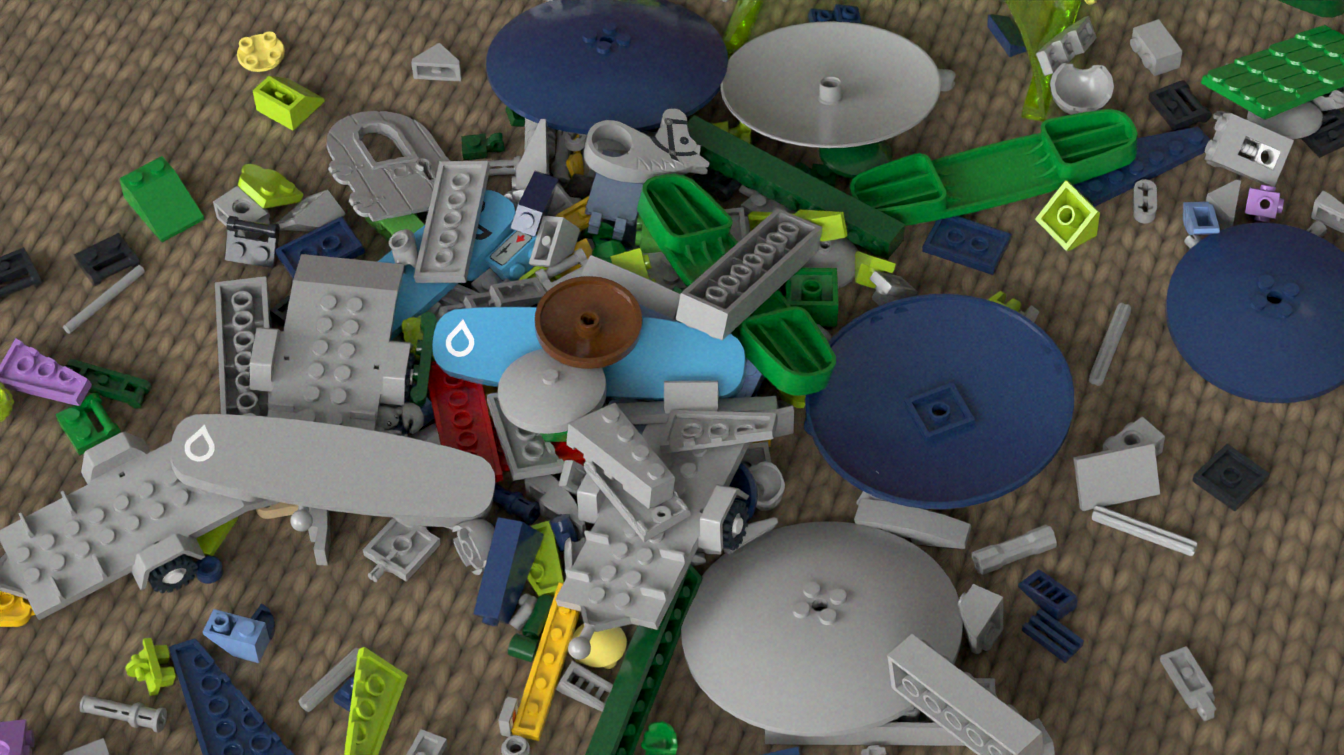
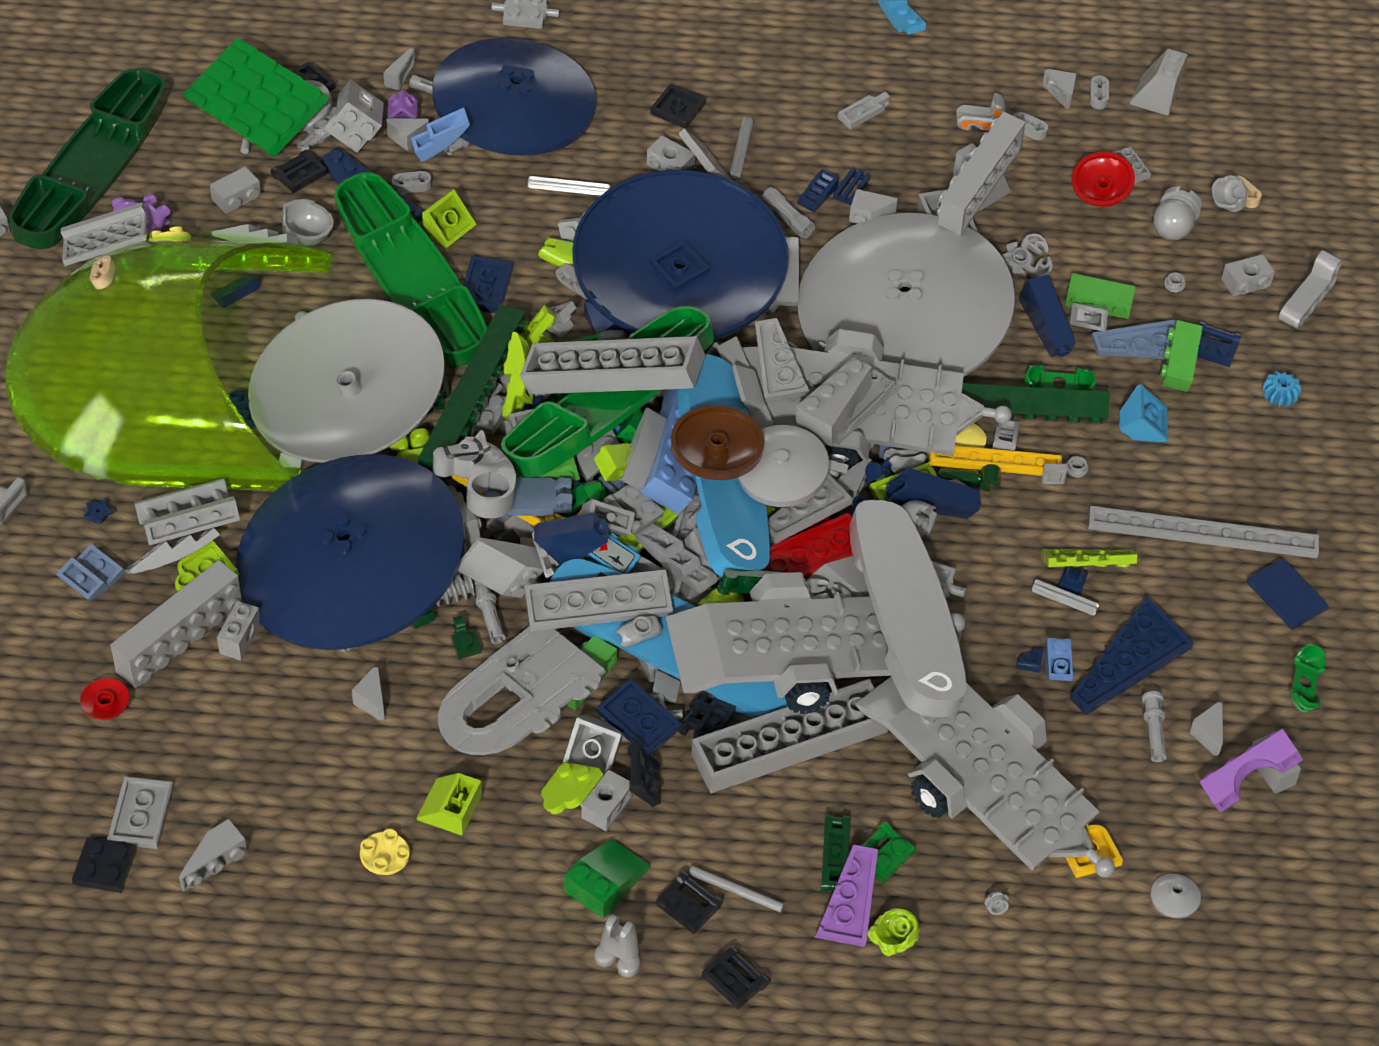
camera: 110 degrees left, 0 degrees up
(72, 184) = (619, 943): none -> light grey piece
(147, 668) = (1109, 718): lime hips -> none

